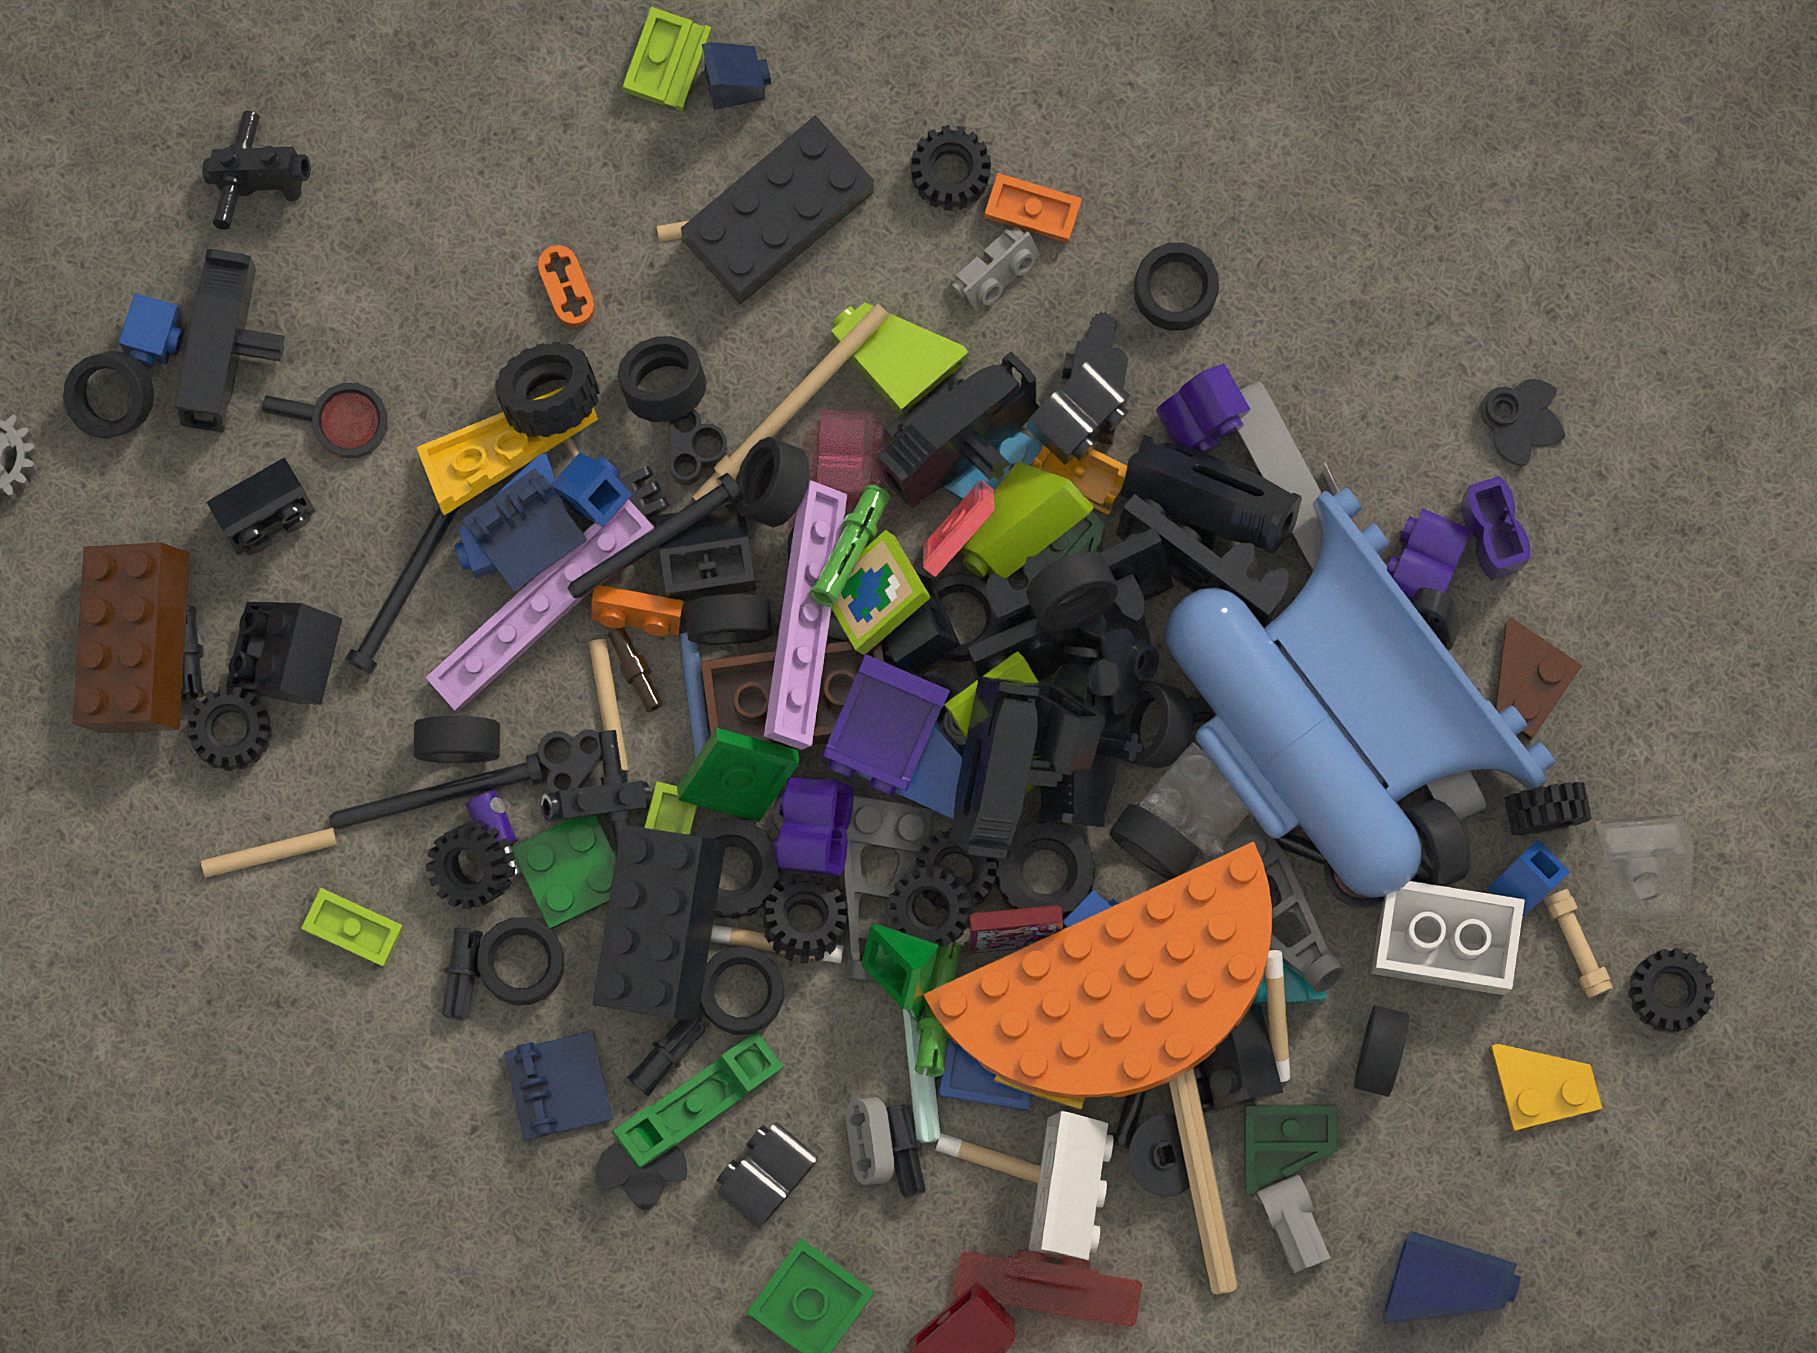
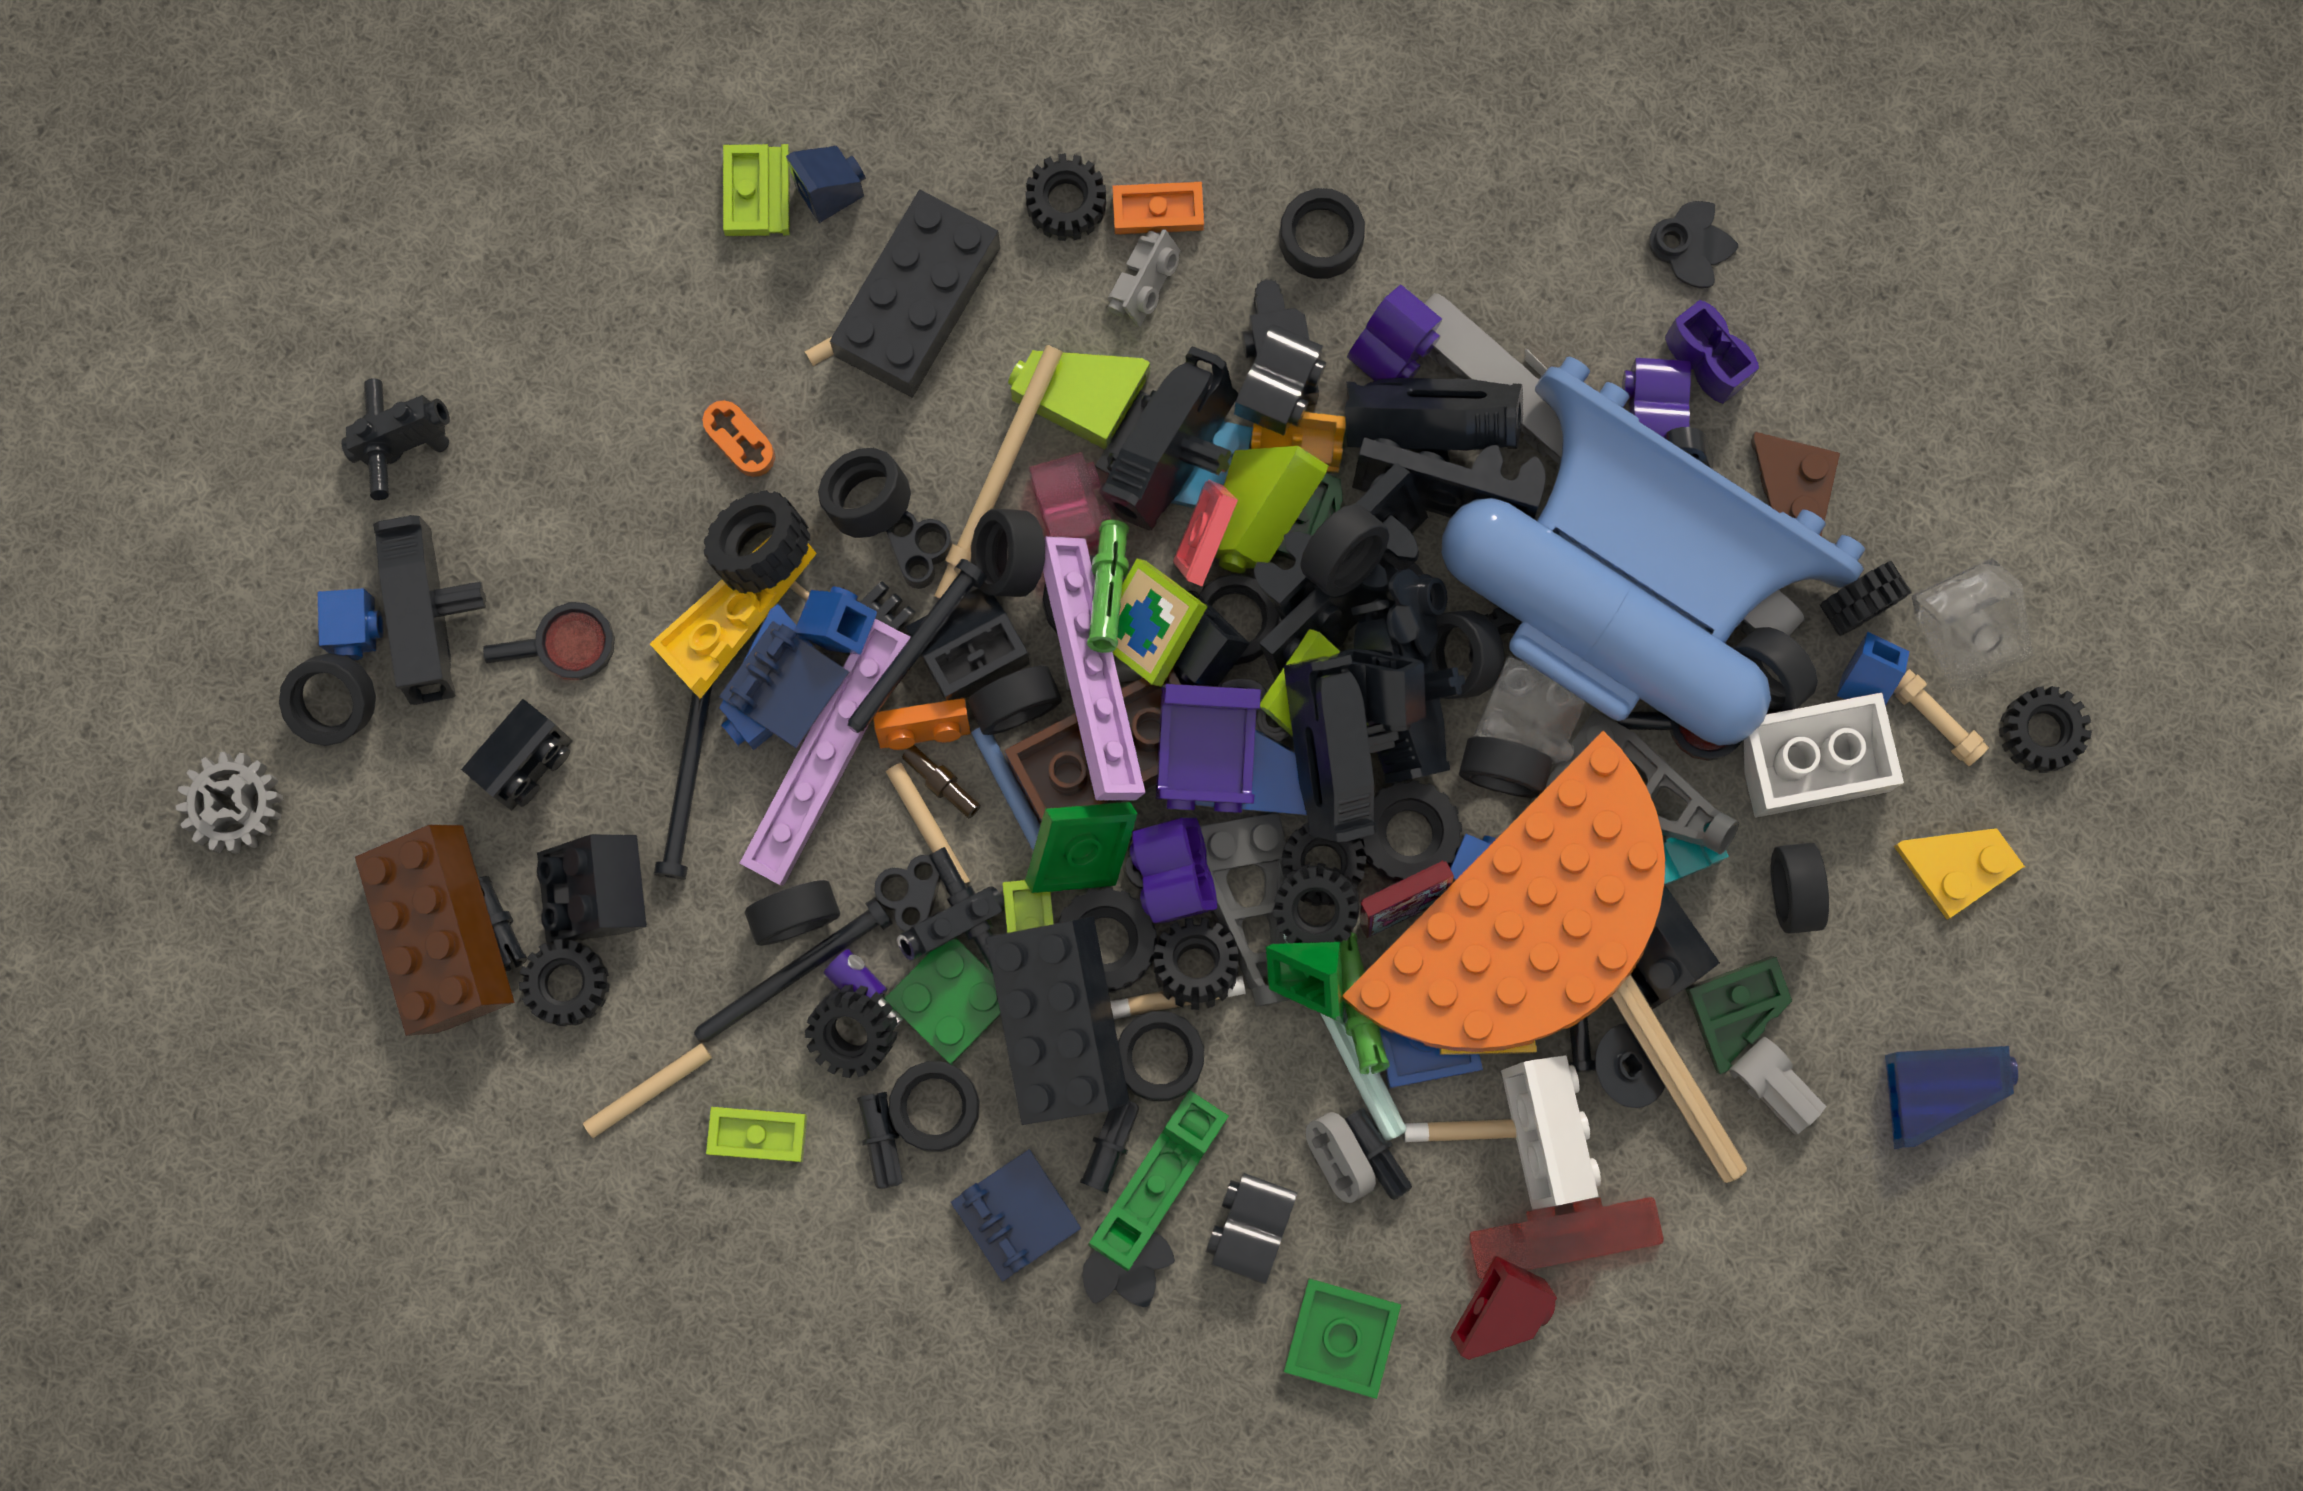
camera: 20 degrees left, 0 degrees up
(1277, 1013) = (1686, 887): tan bar -> none

